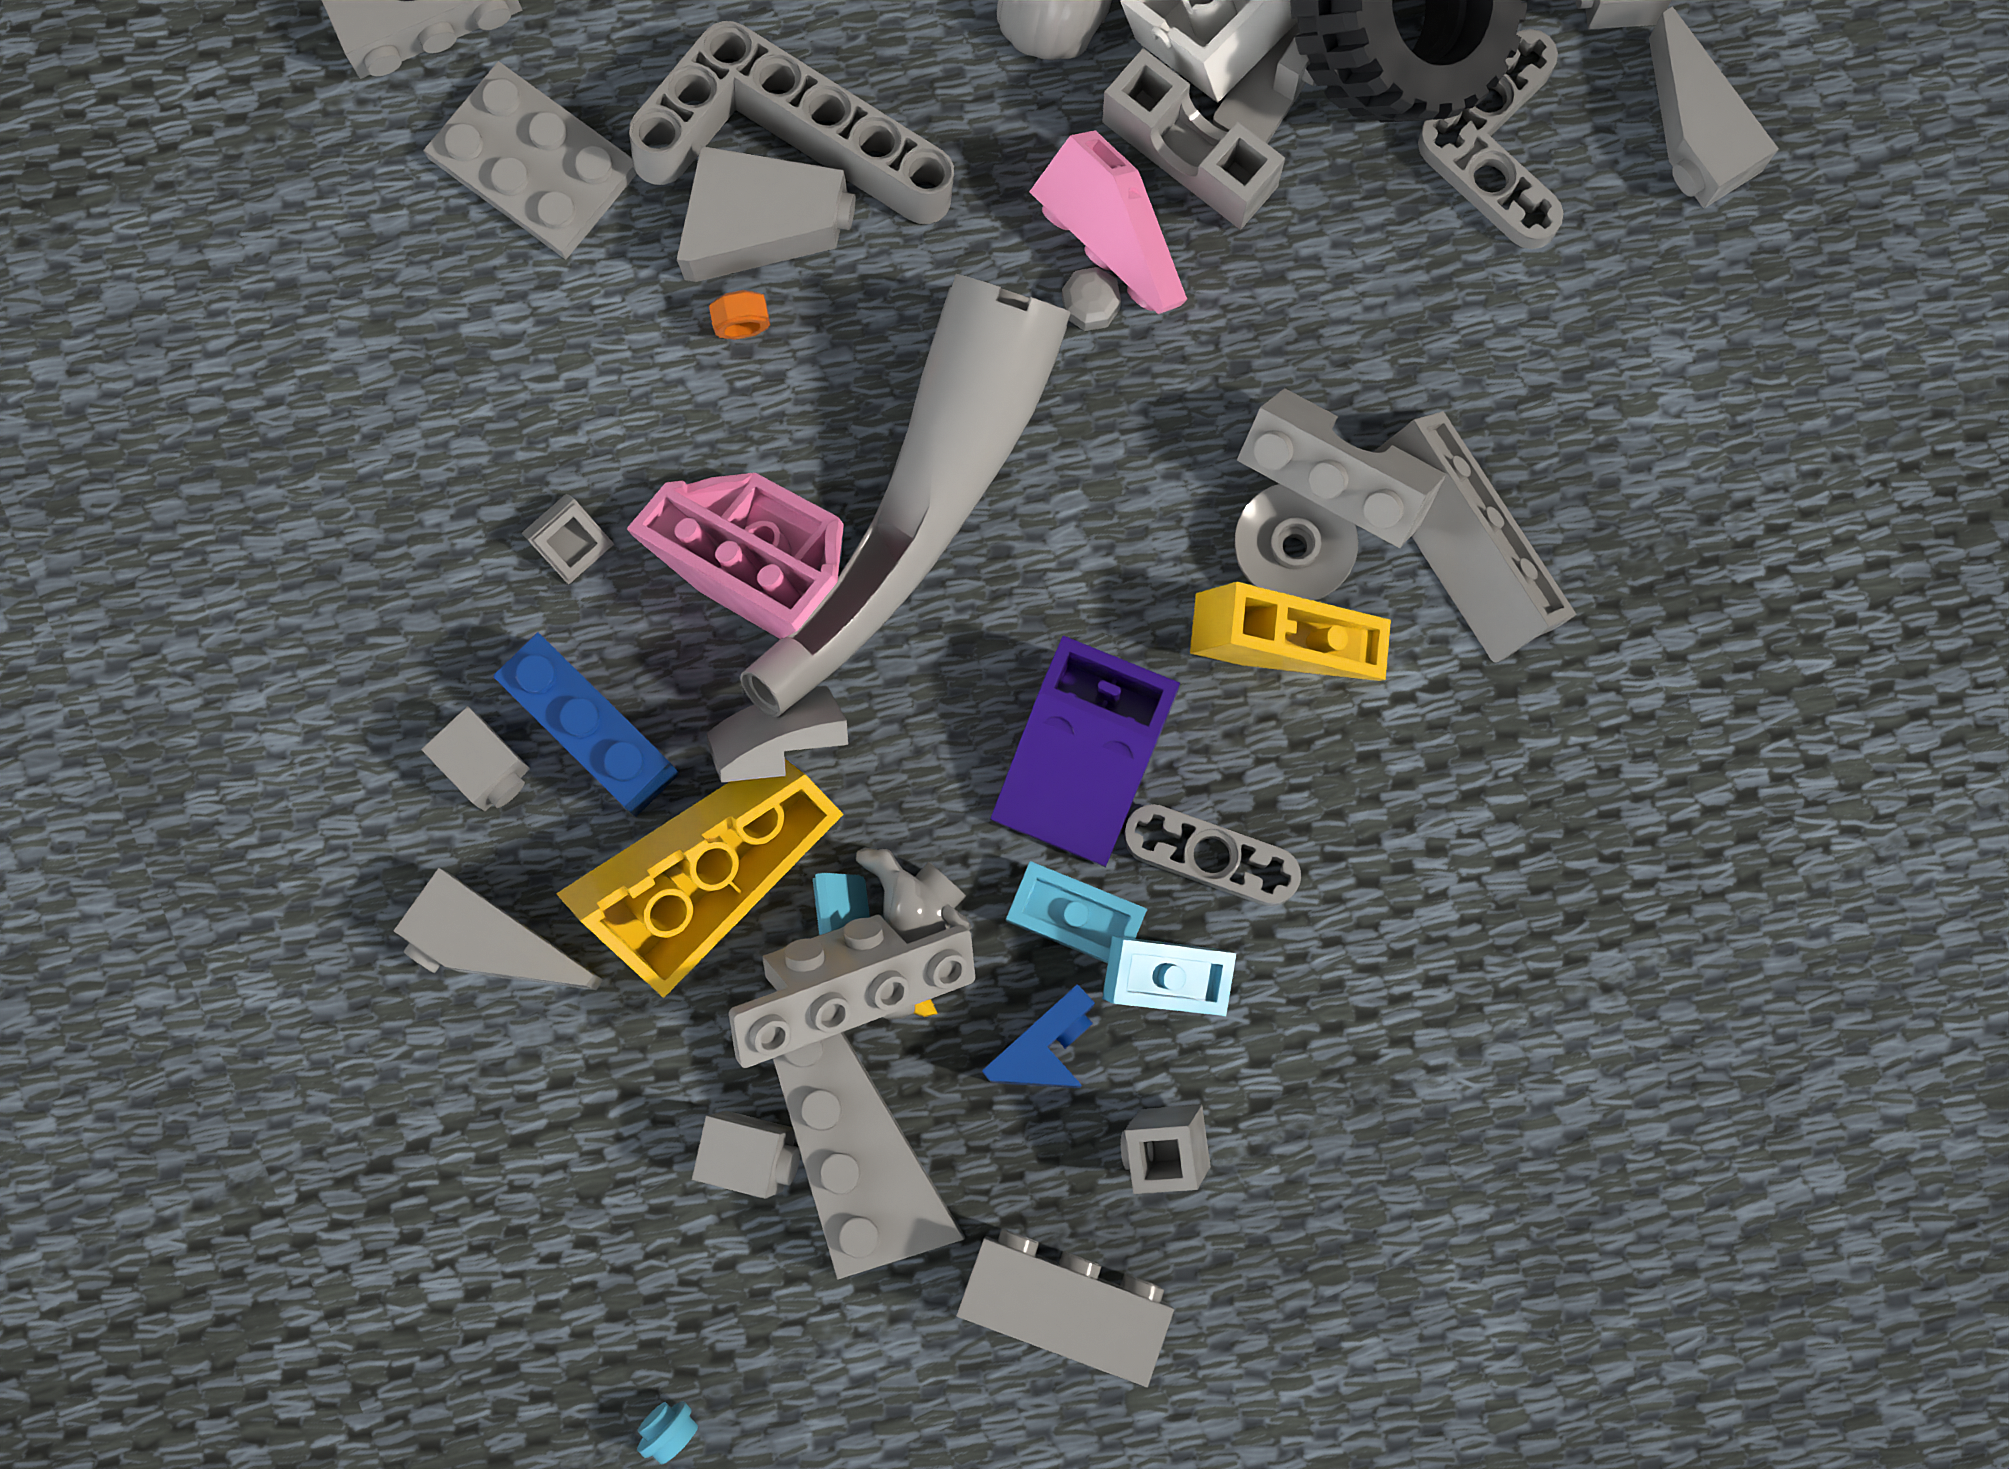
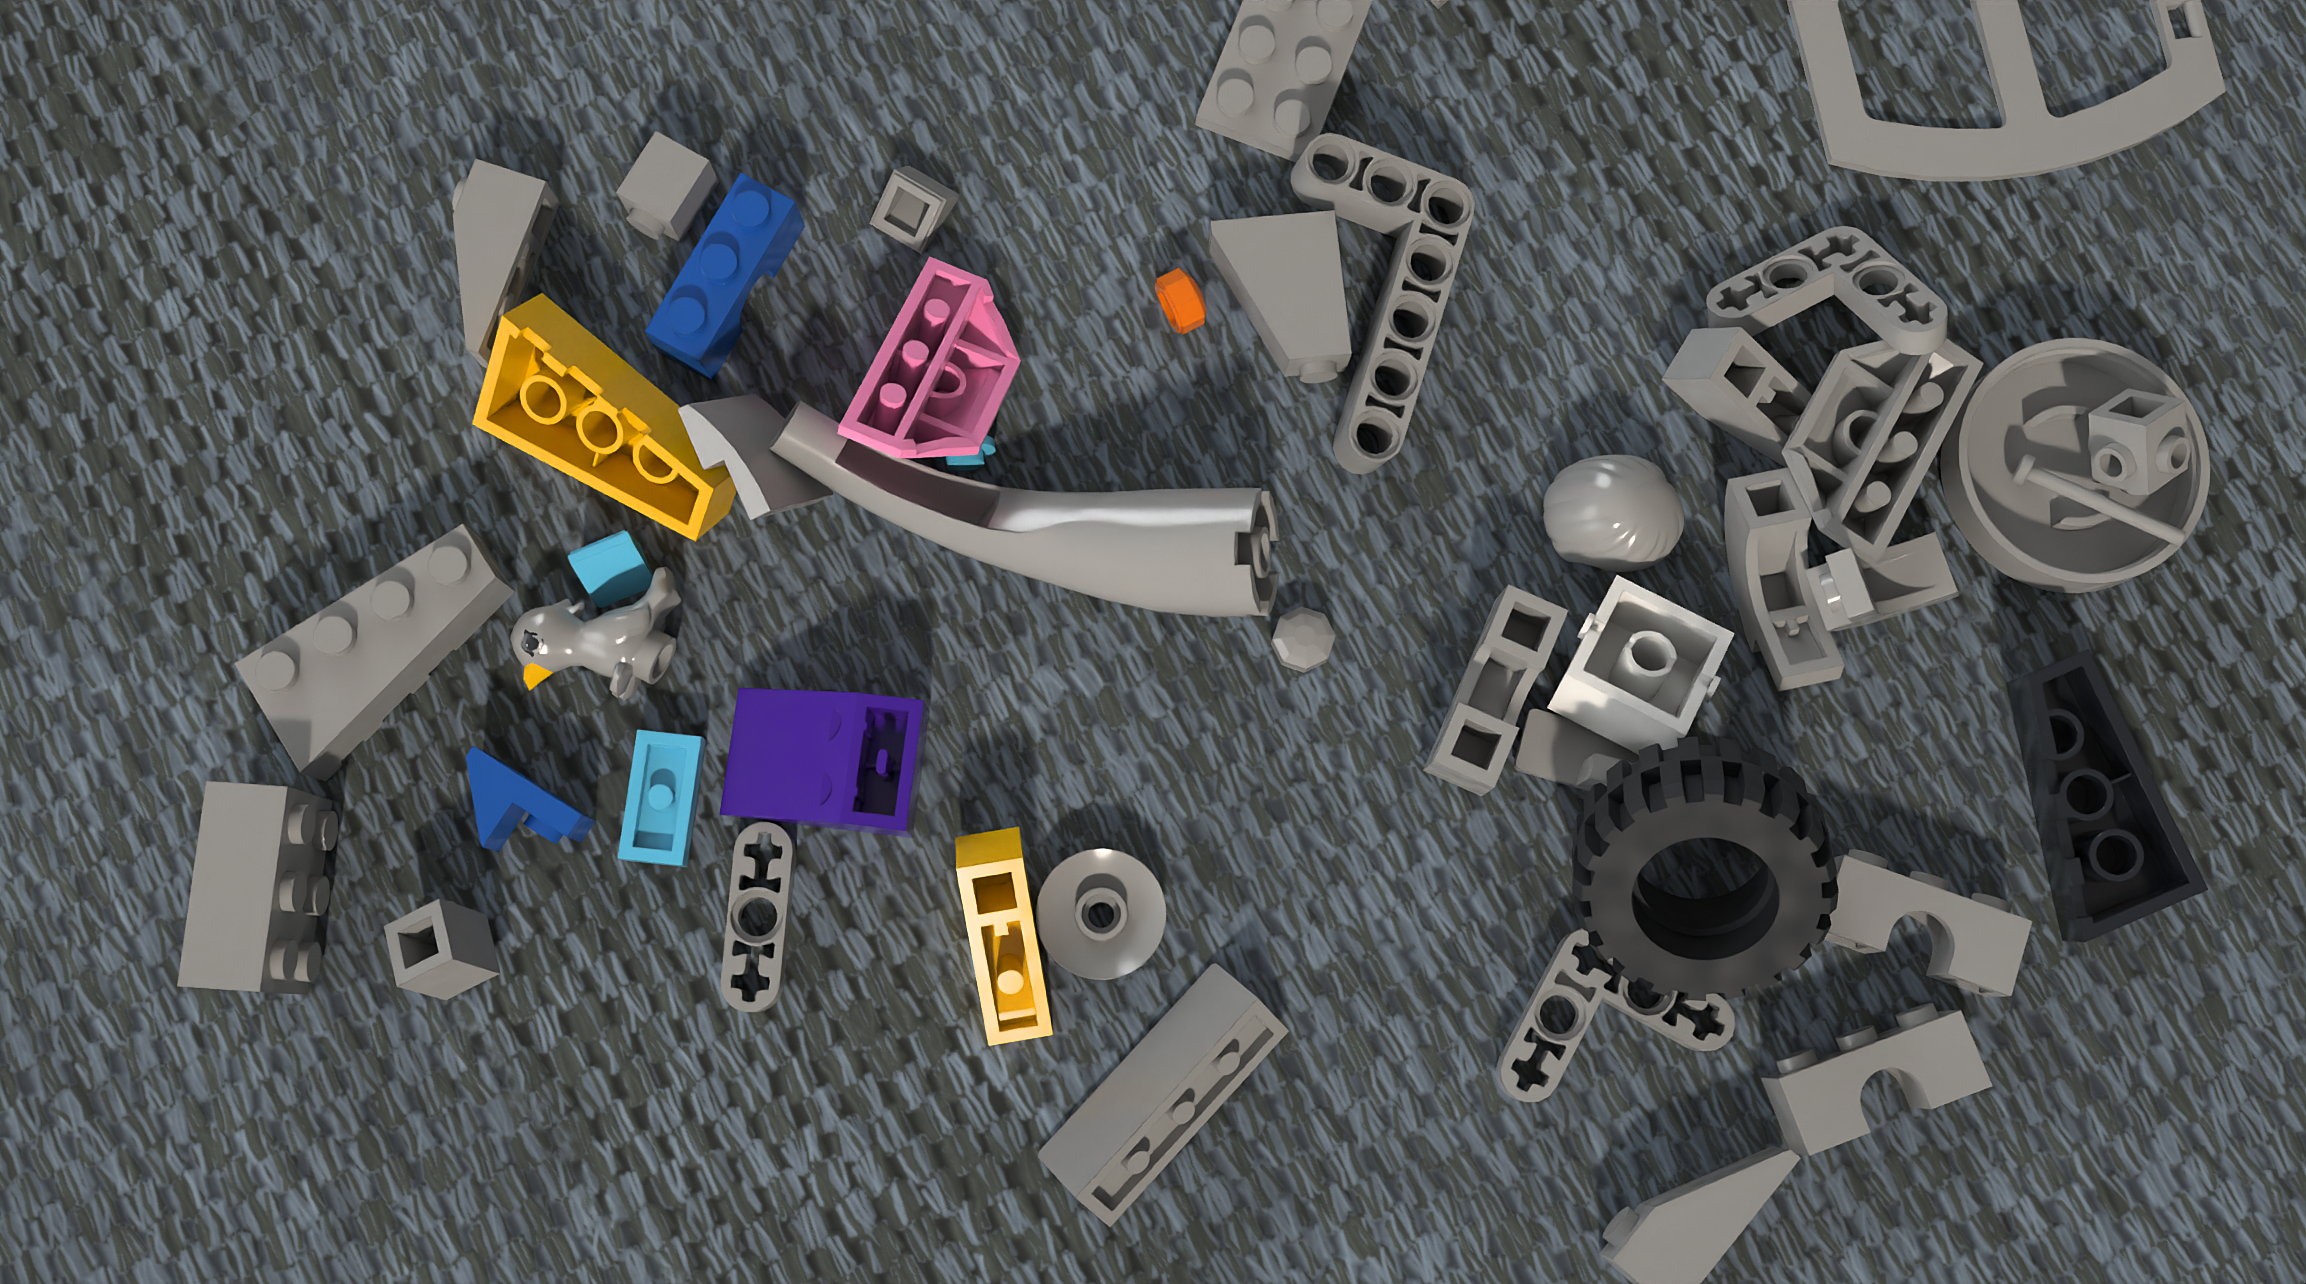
camera: 65 degrees right, 0 degrees up
(666, 1431) = (71, 551): medium azure plate -> none
(746, 1154) = (343, 543): light grey brick -> none
(844, 983) = (520, 585): light grey bracket -> none
(1109, 211) = (1392, 631): bright pink slope -> none
(1168, 976) = (617, 905): plate -> none
(1374, 490) = (1165, 976): light grey arch -> none

